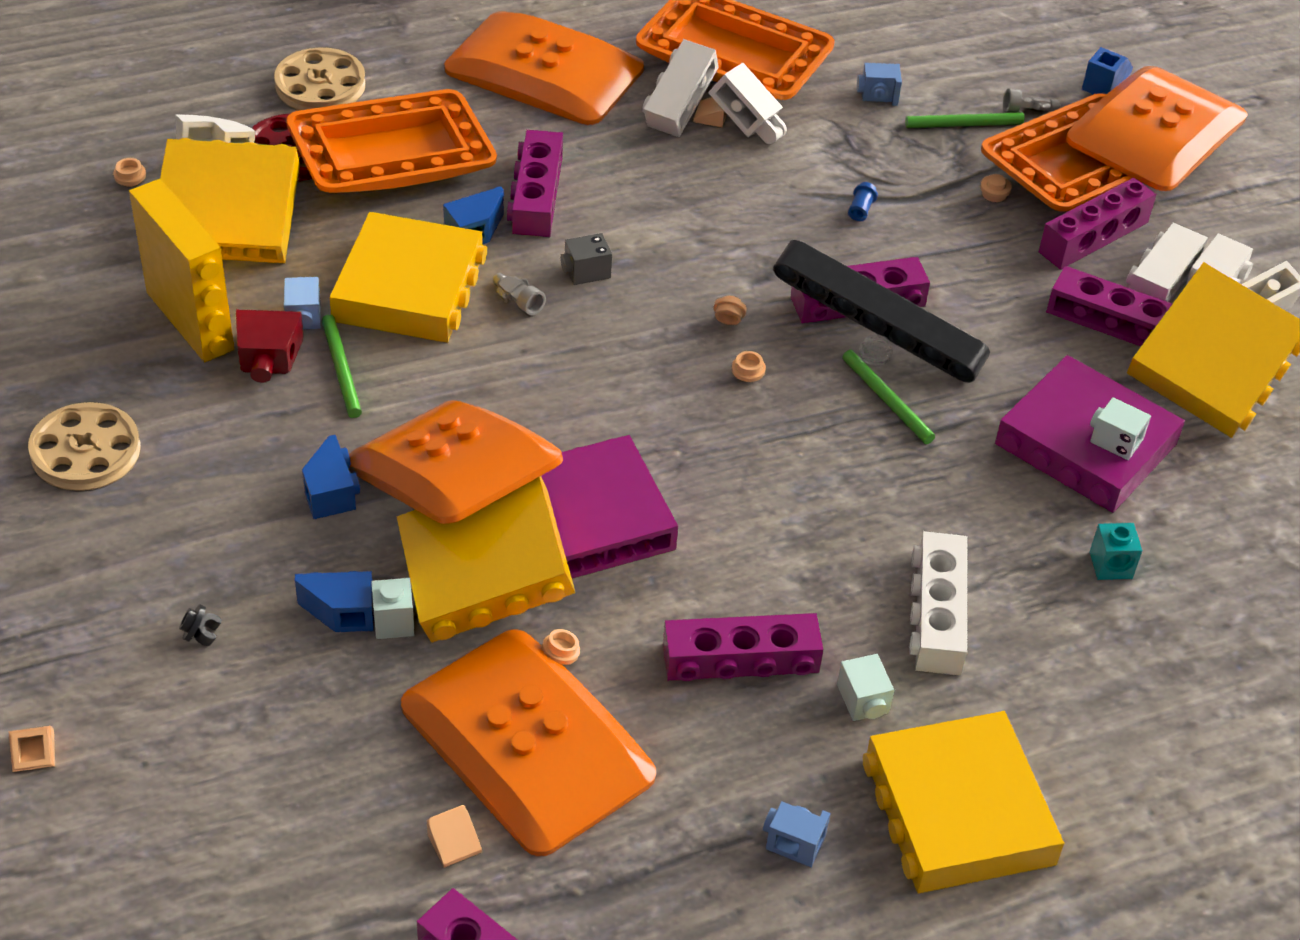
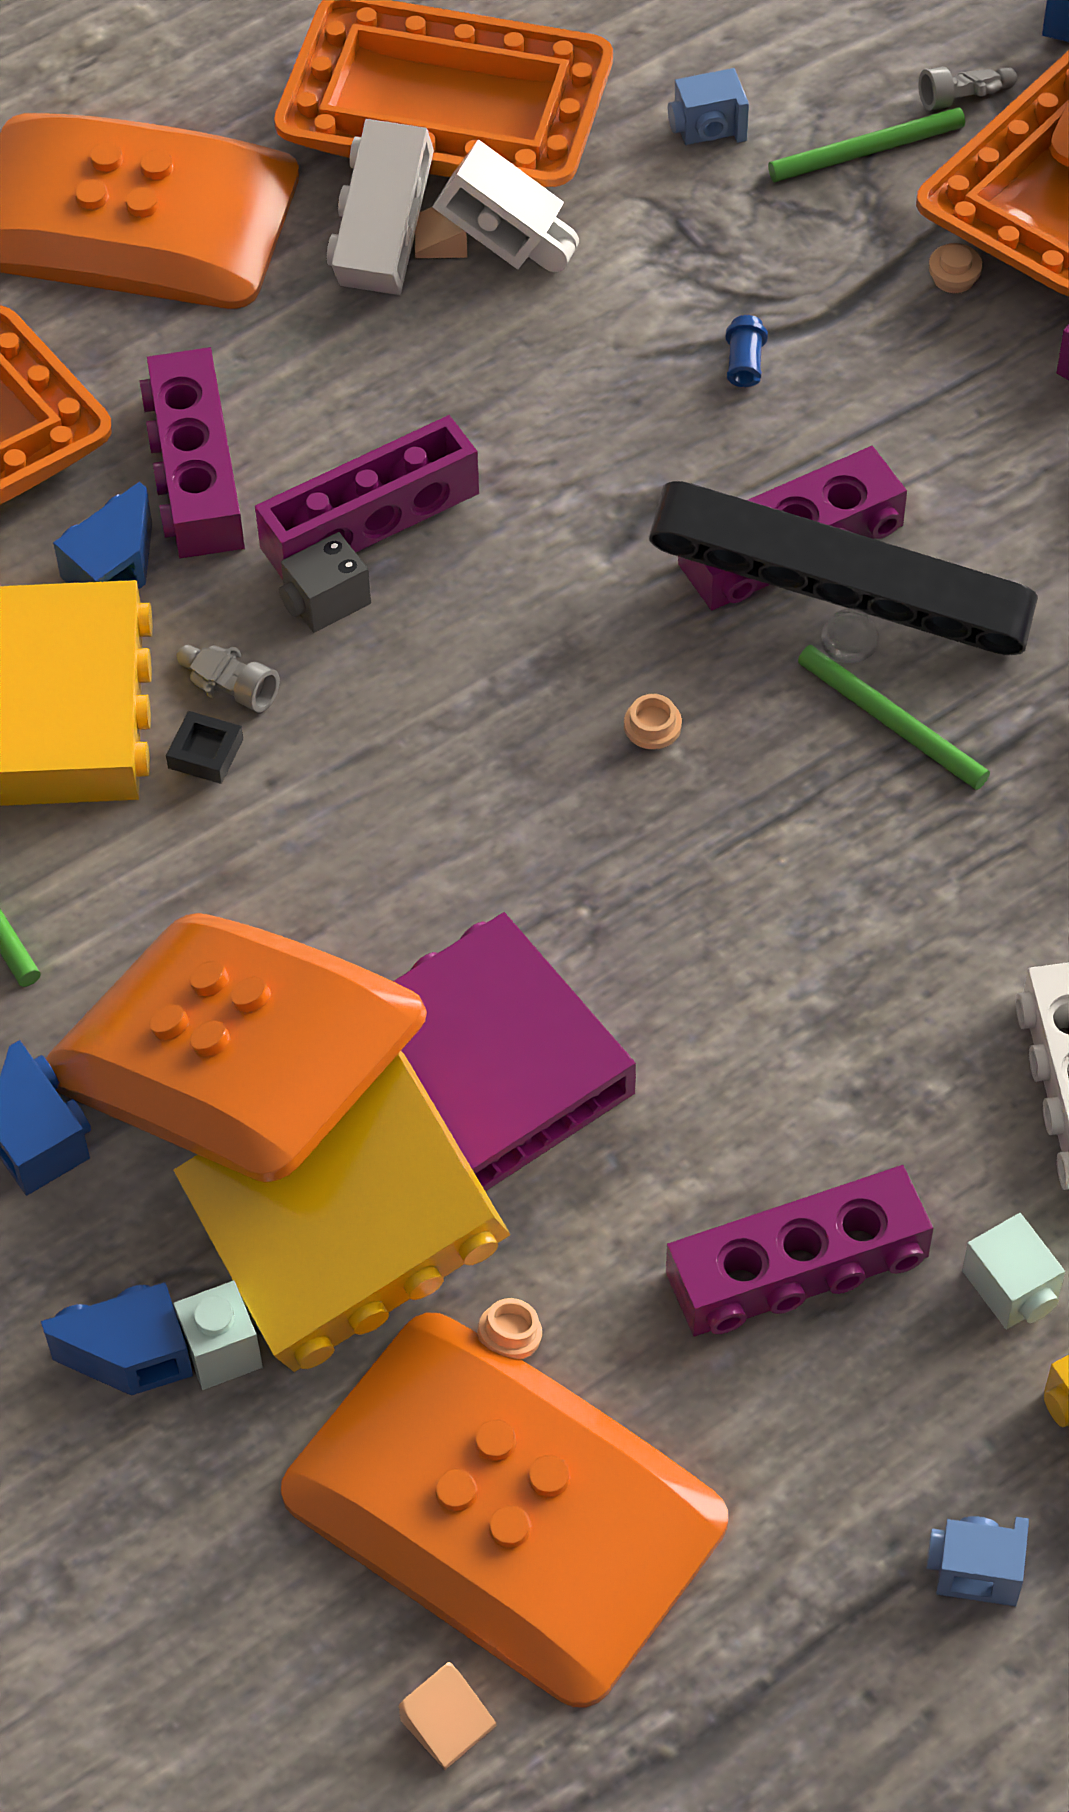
camera: 10 degrees left, 10 degrees up
(492, 322) = (204, 747): none -> black plate
(629, 220) = (373, 493): none -> magenta brick
(729, 310) = (590, 621): light nougat plate -> none

